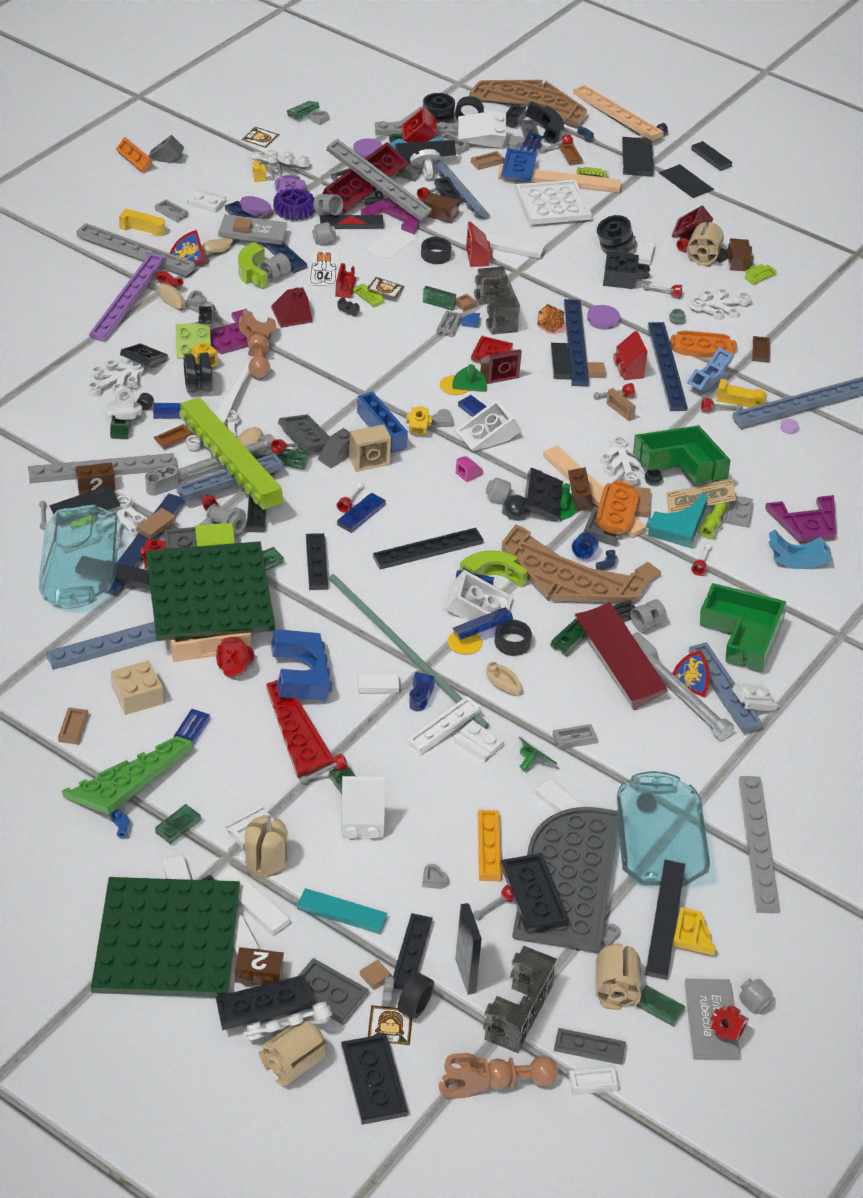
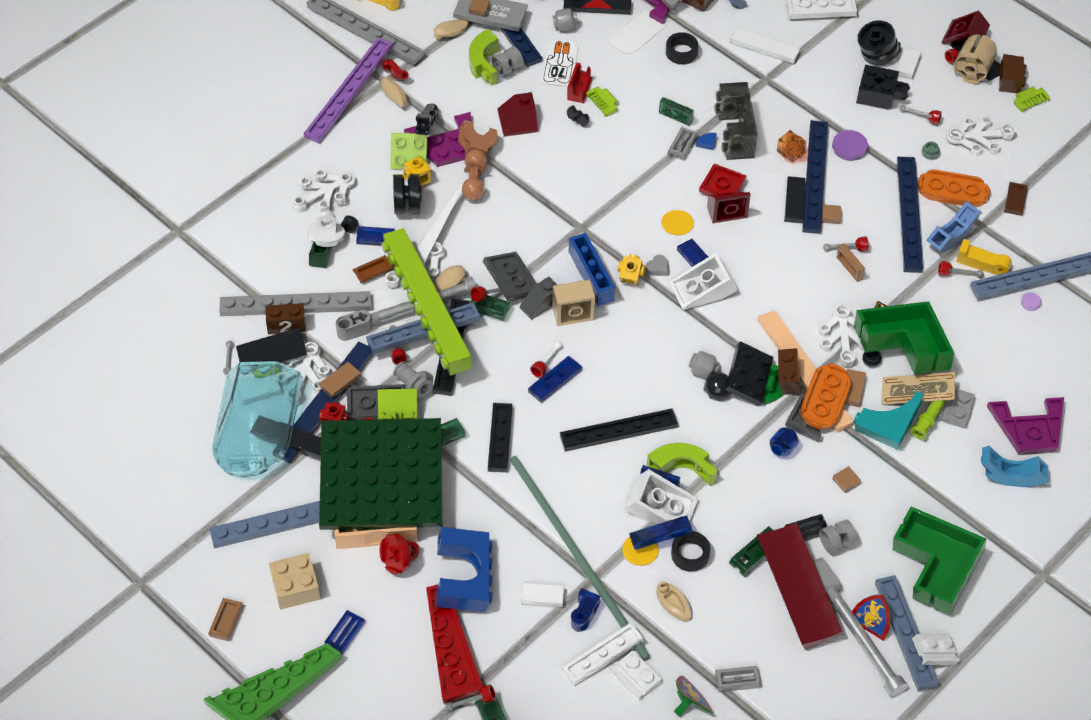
camera: 10 degrees right, 10 degrees up
(144, 354) = (355, 165): black plate -> none
(189, 248) = (419, 33): shield -> none
(196, 298) = (420, 95): light grey tile -> none
(385, 287) = (621, 93): sticker -> none
(465, 302) = (704, 117): medium nougat tile -> none
(467, 469) = (674, 333): dark pink brick -> none
(470, 379) = (694, 217): green shield -> none
(477, 247) = (726, 48): red slope -> none
(570, 579) = (765, 484): medium nougat wing -> none
(609, 562) = (807, 463): dark blue arm -> none
(631, 357) = (870, 204): red slope -> none
(699, 566) = (903, 476): red hinge -> none

